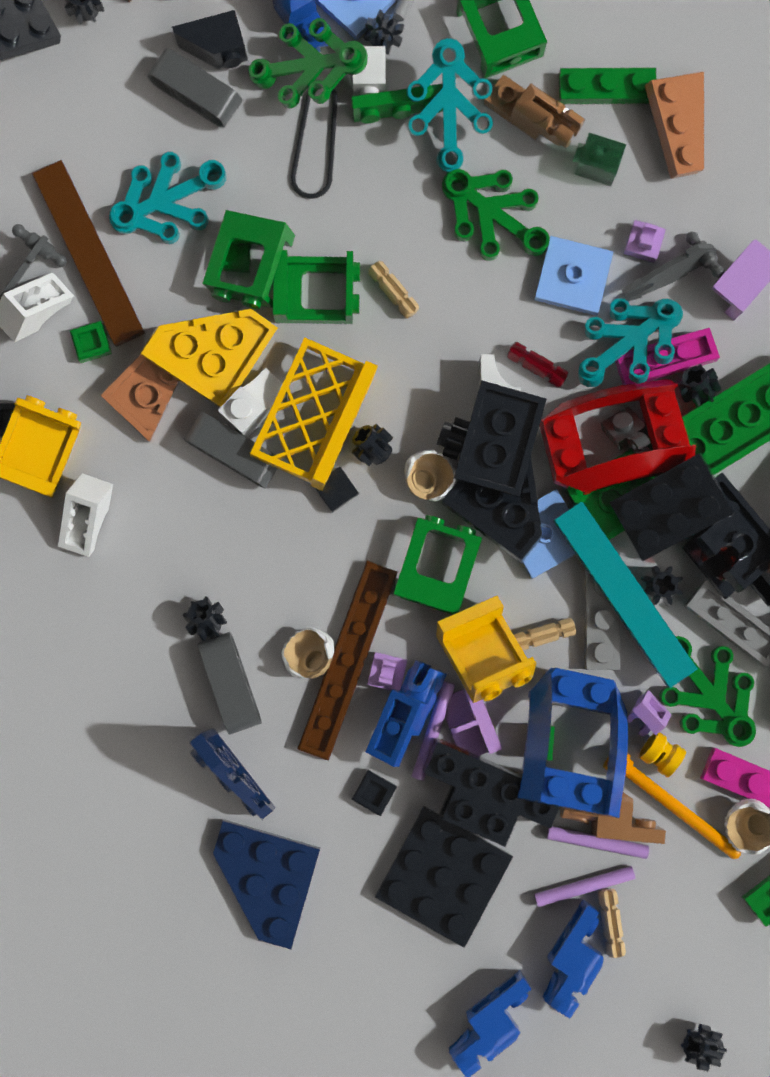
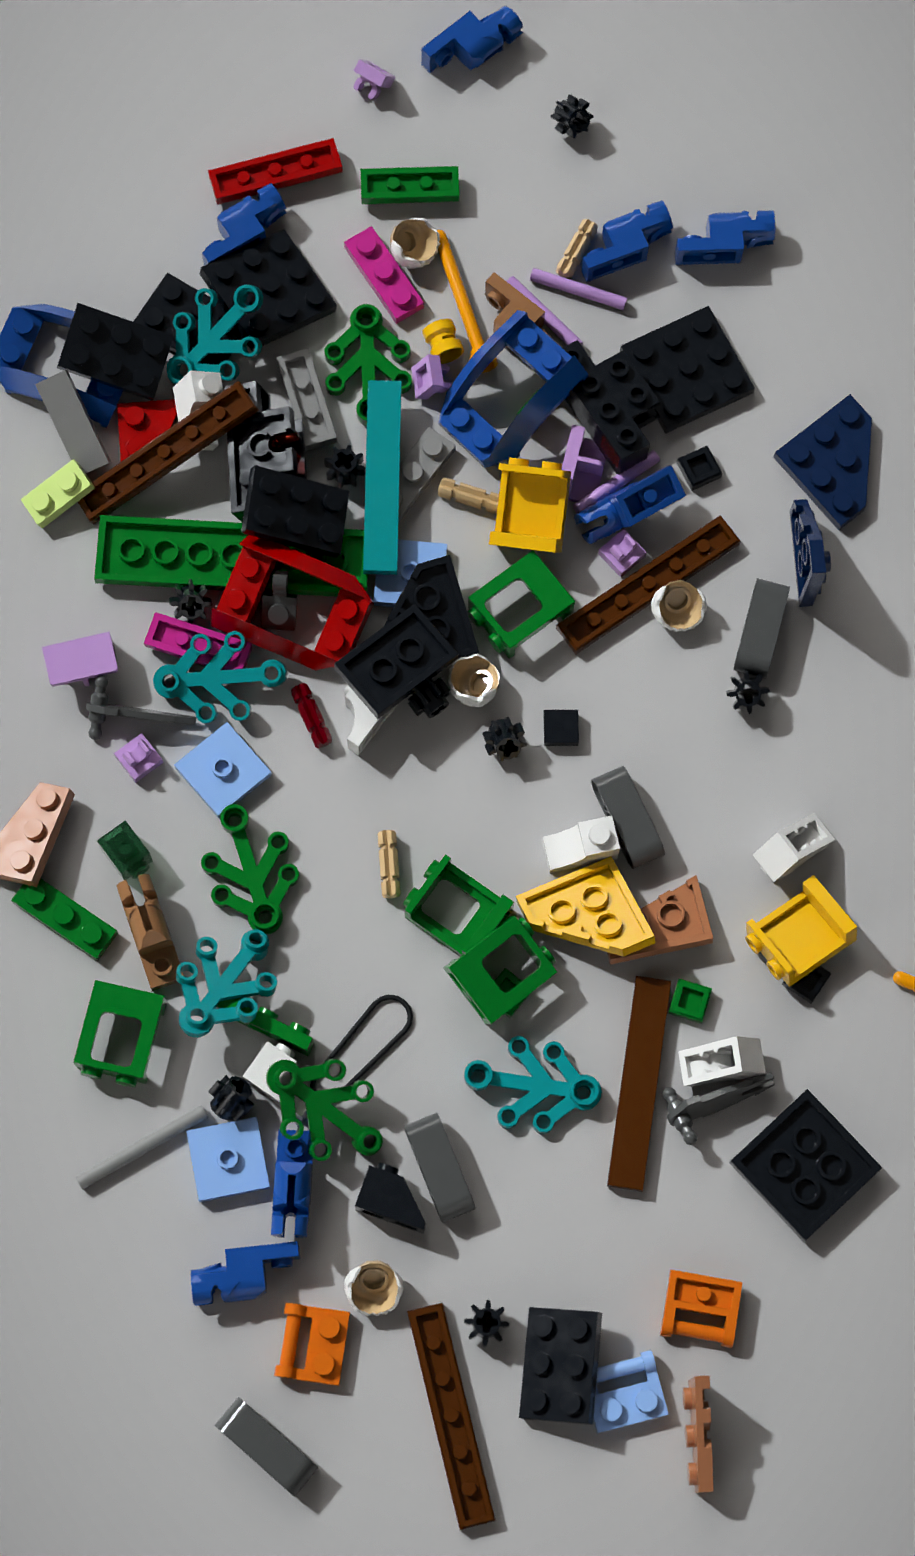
camera: 145 degrees left, 10 degrees down
(340, 425) = (520, 770): yellow fence -> none

